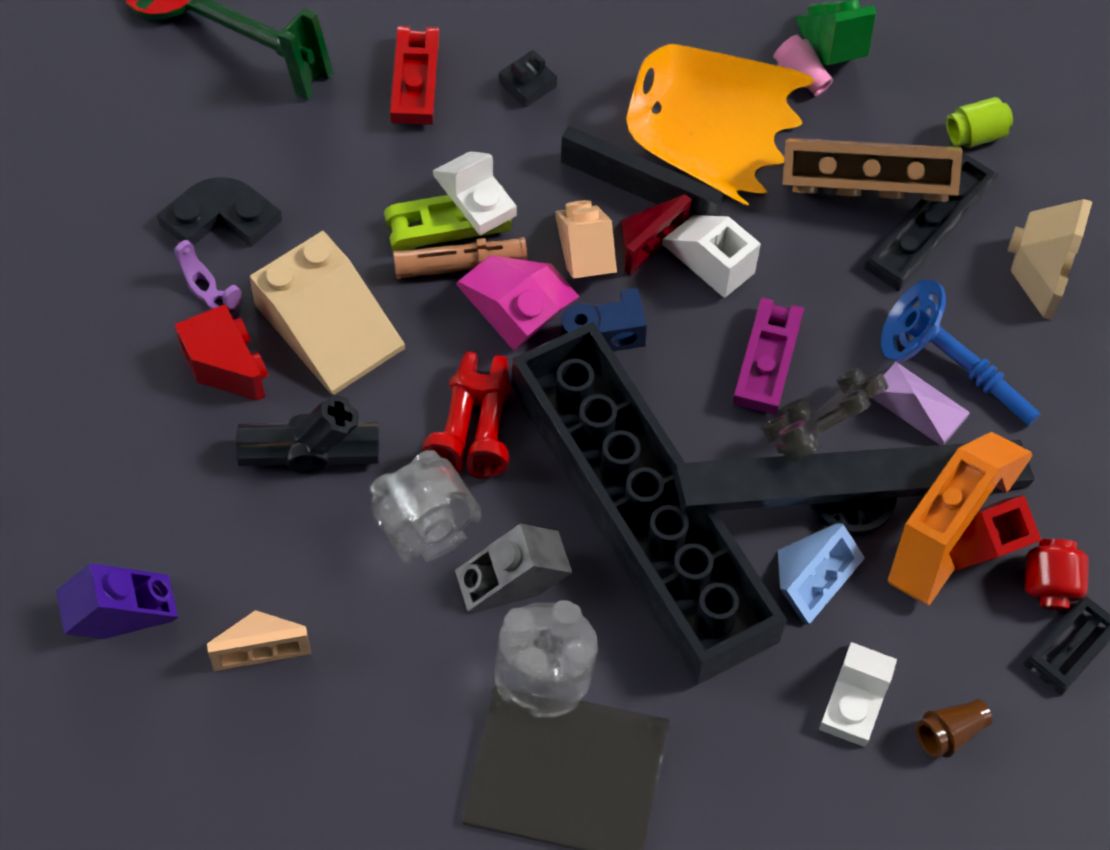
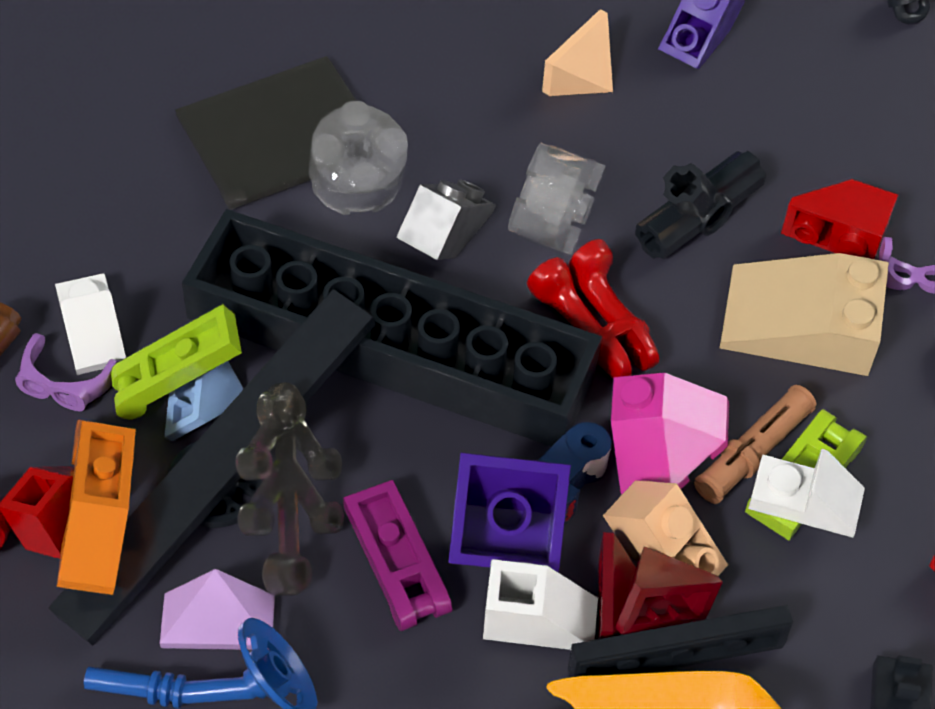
camera: 140 degrees right, 5 degrees down
(631, 195) = (666, 594): none -> dark red slope
(692, 296) = (508, 511): none -> dark purple slope
(830, 575) = (174, 361): none -> lime plate
(914, 633) = (40, 387): none -> medium lavender cap

